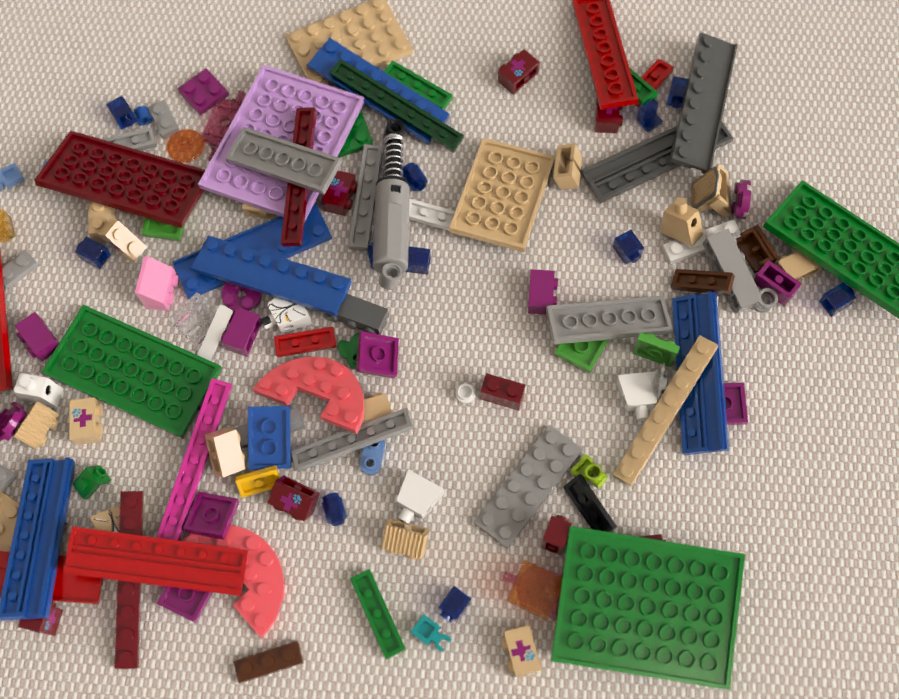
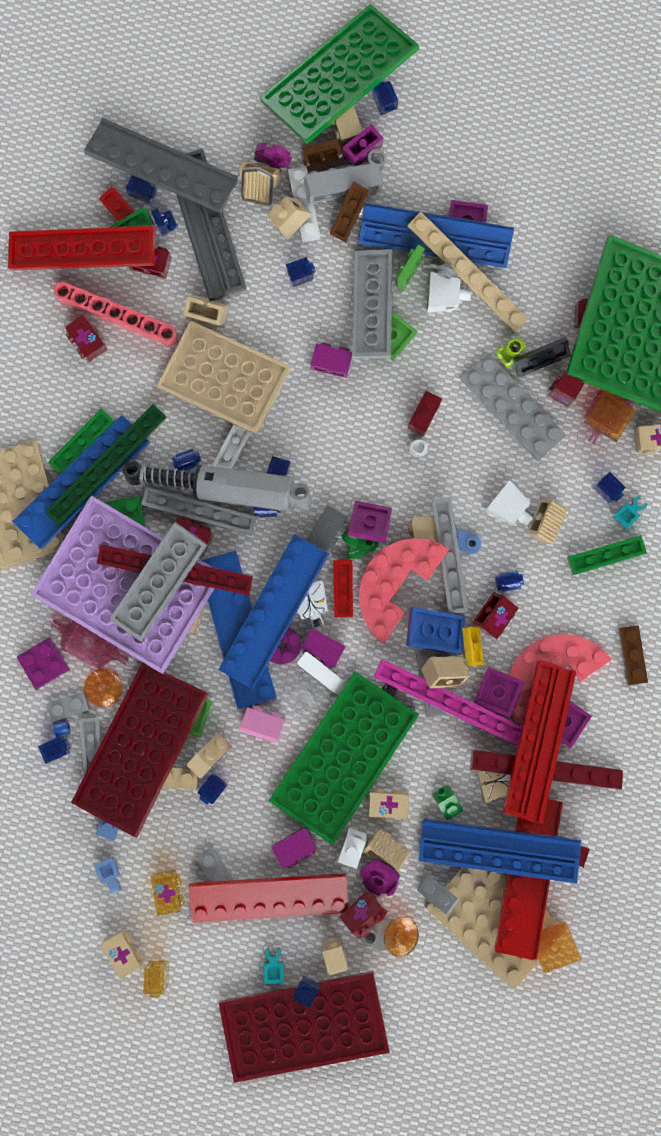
camera: 85 degrees left, 15 degrees up
(557, 53) = (109, 307): none -> coral beam

